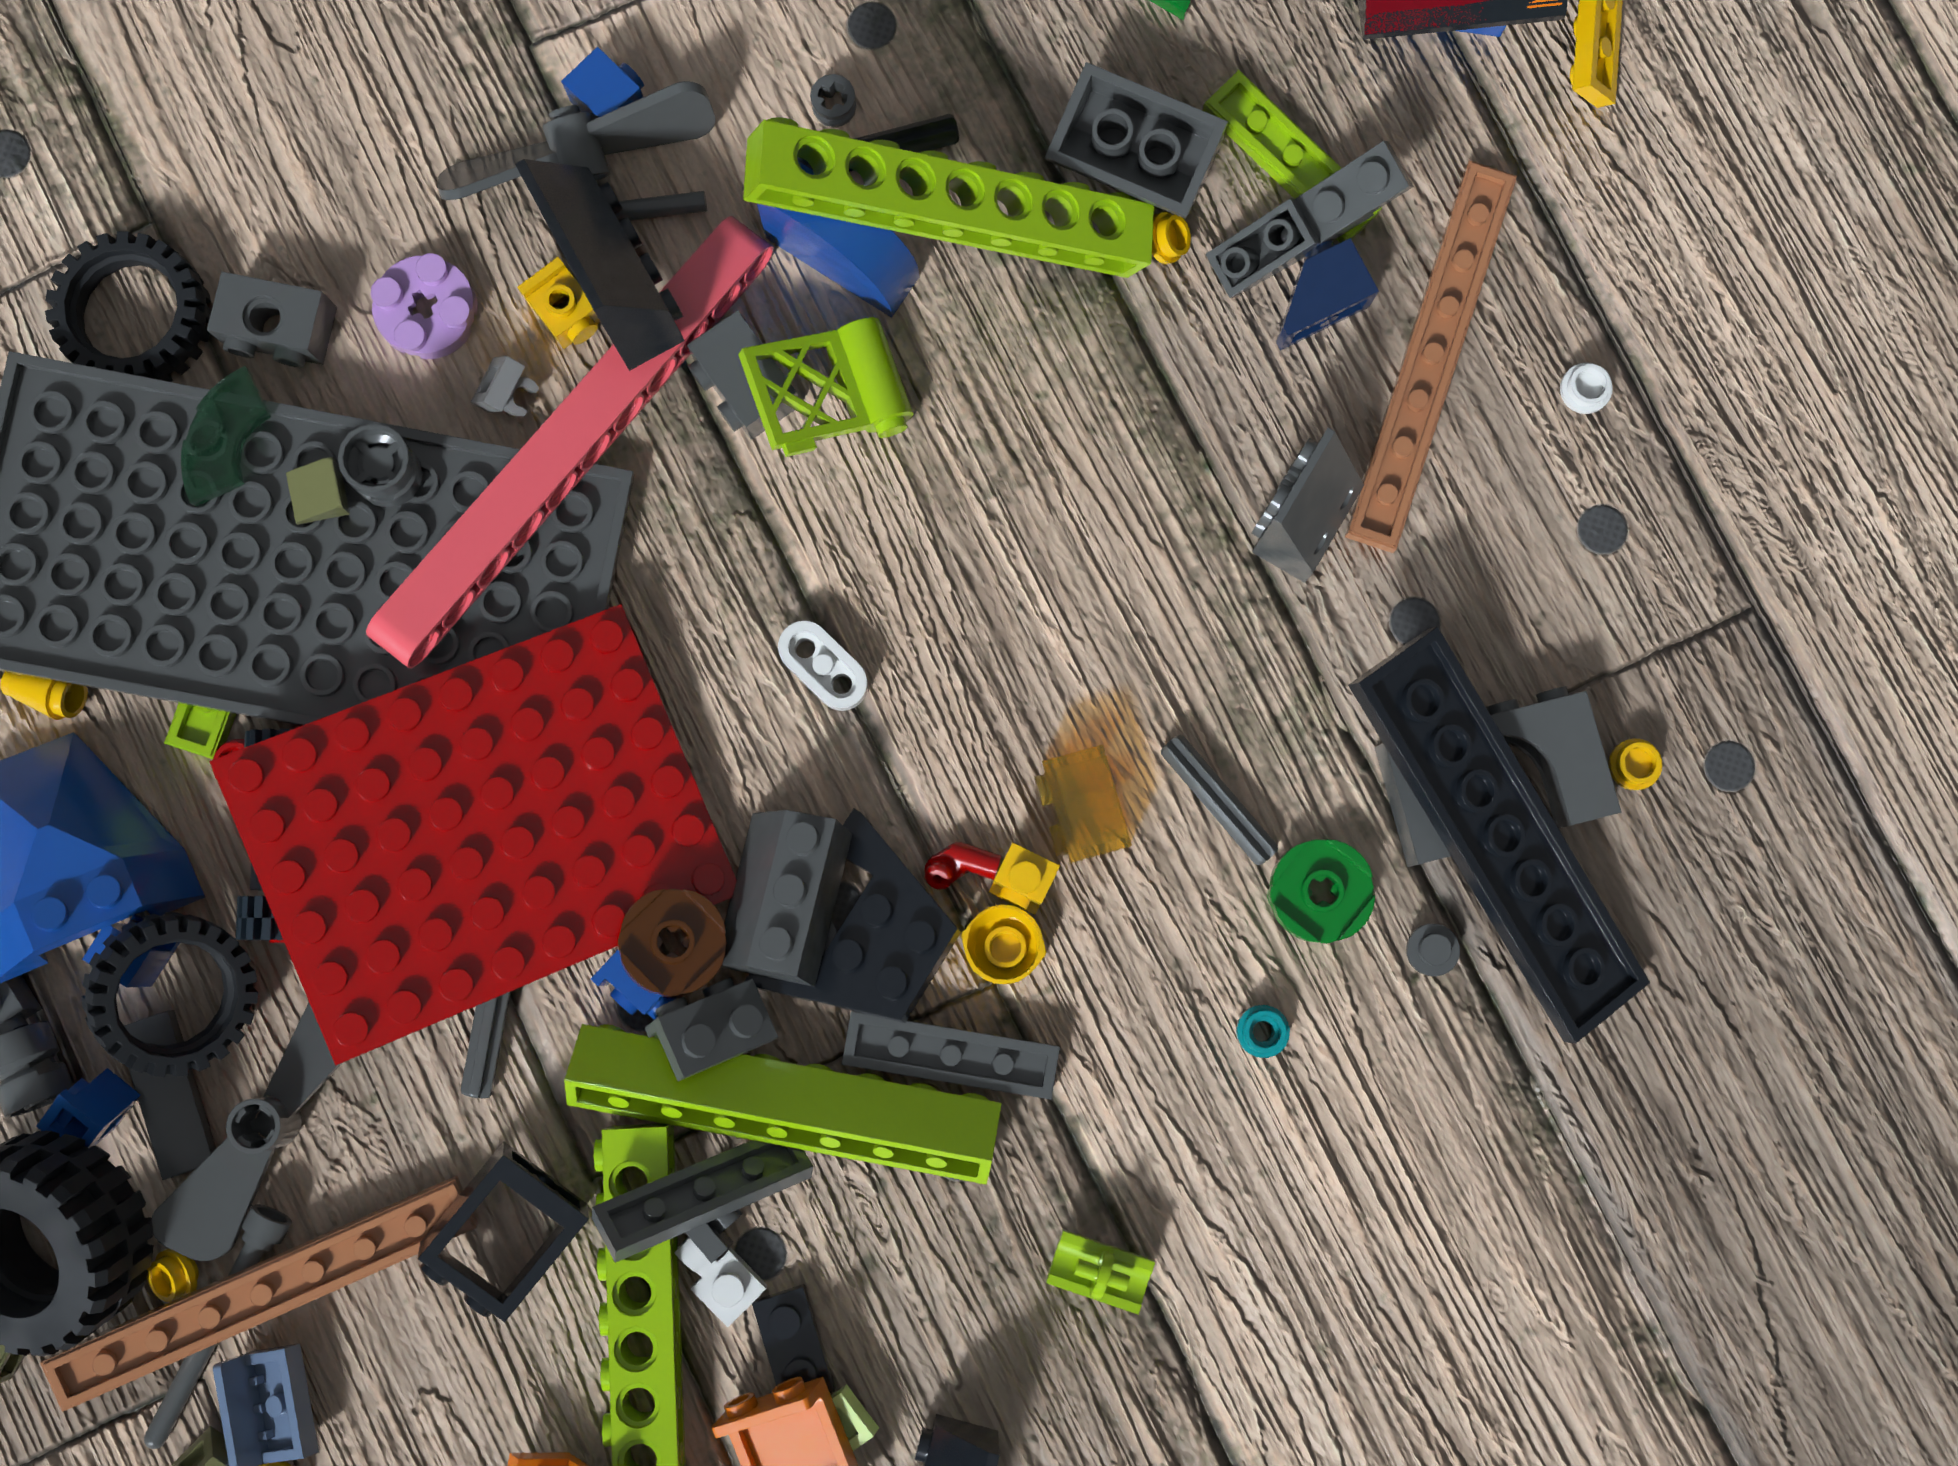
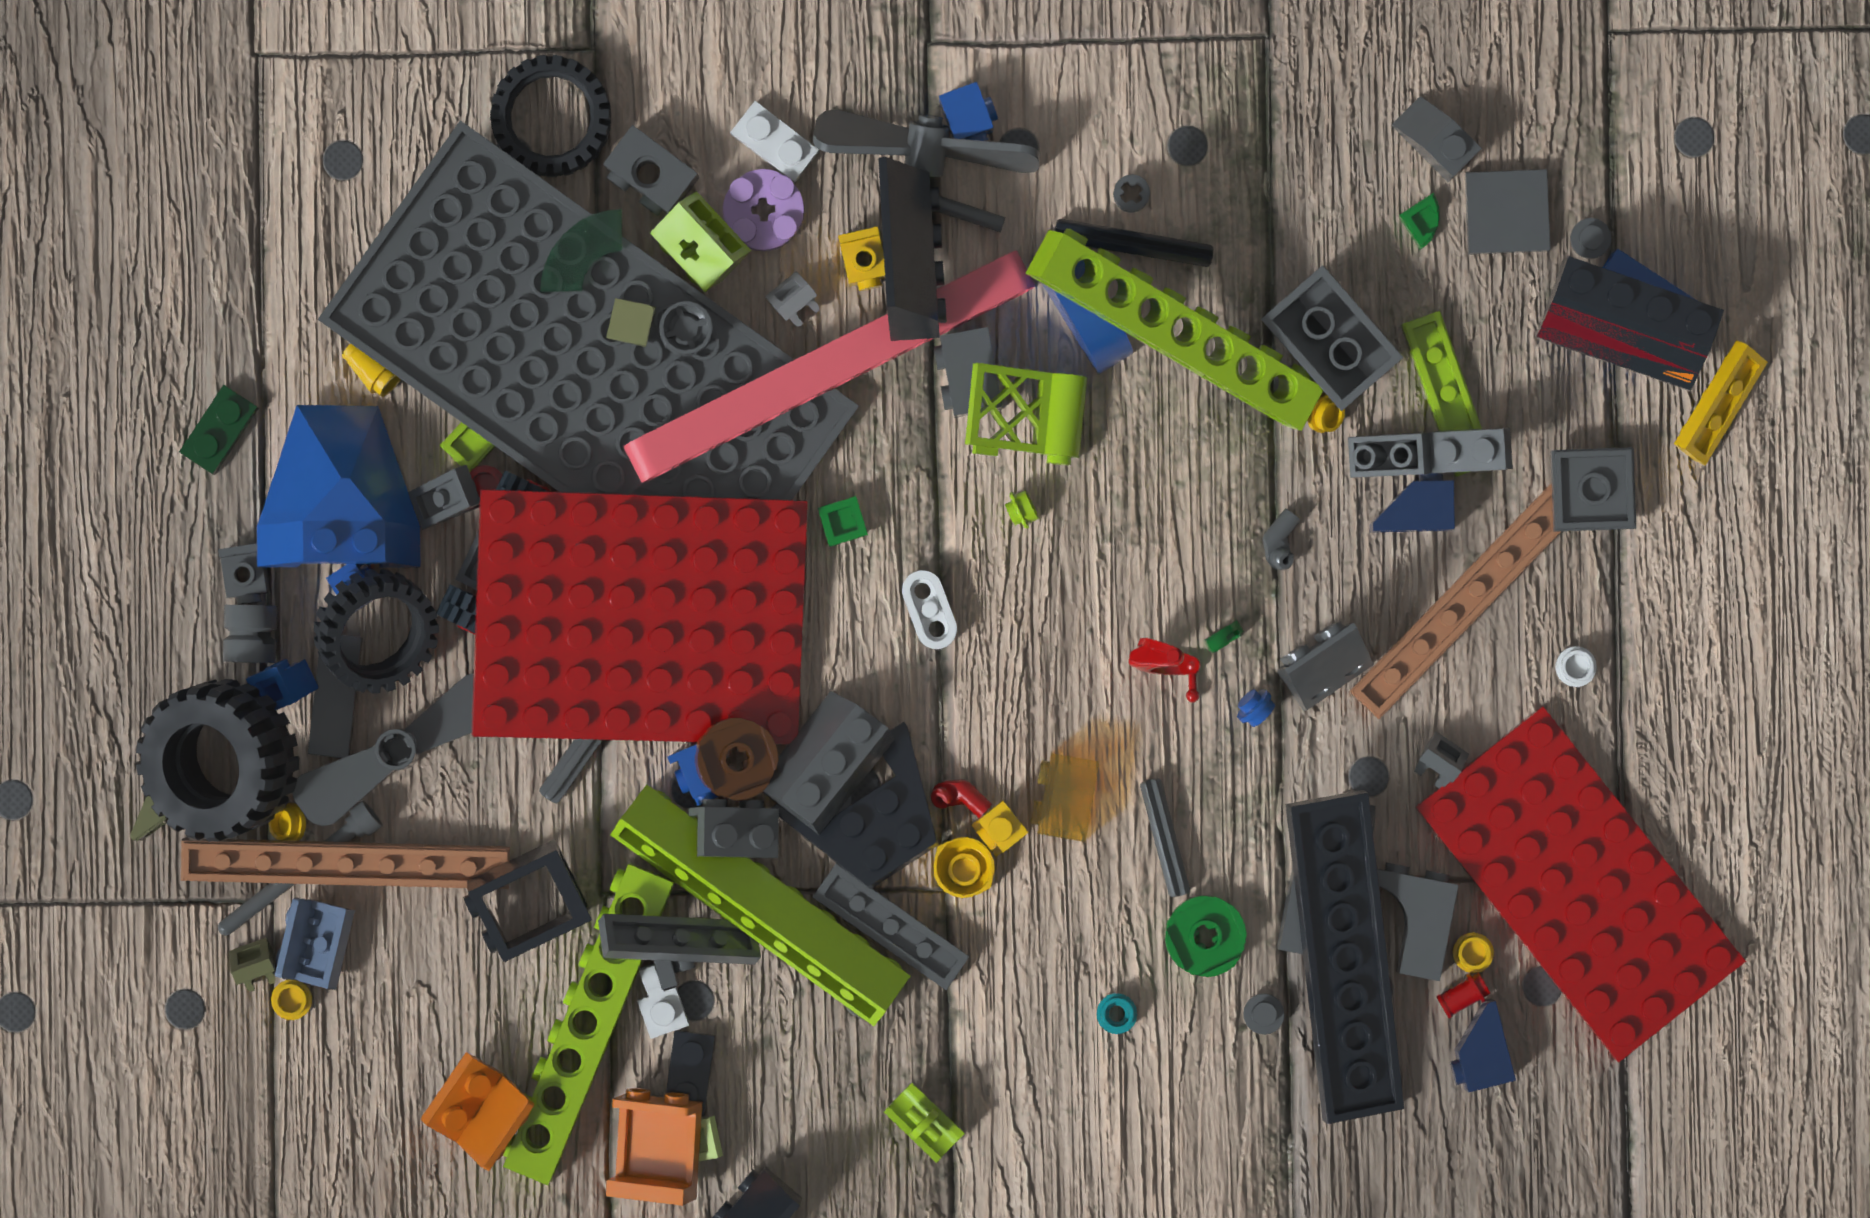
camera: 30 degrees right, 5 degrees up
(191, 800) = (445, 497): none -> dark grey slope
(362, 369) = (700, 242): none -> lime brick
(402, 226) = (774, 141): none -> white plate
(675, 611) = (842, 521): none -> green plate
(875, 502) = (1021, 509): none -> lime plate
(1121, 592) = (1166, 659): none -> red helmet
(1173, 540) = (1223, 636): none -> green tile
(1180, 404) = (1276, 541): none -> dark grey arm
(1250, 601) = (1255, 707): none -> blue plate
(1493, 557) = (1443, 758): none -> dark grey tile
(1508, 181) = (1593, 489): none -> dark grey tile
(1650, 817) = (1463, 995): none -> red pin
(1707, 871) = (1483, 1052): none -> dark blue slope
(1716, 630) = (1580, 884): none -> red plate

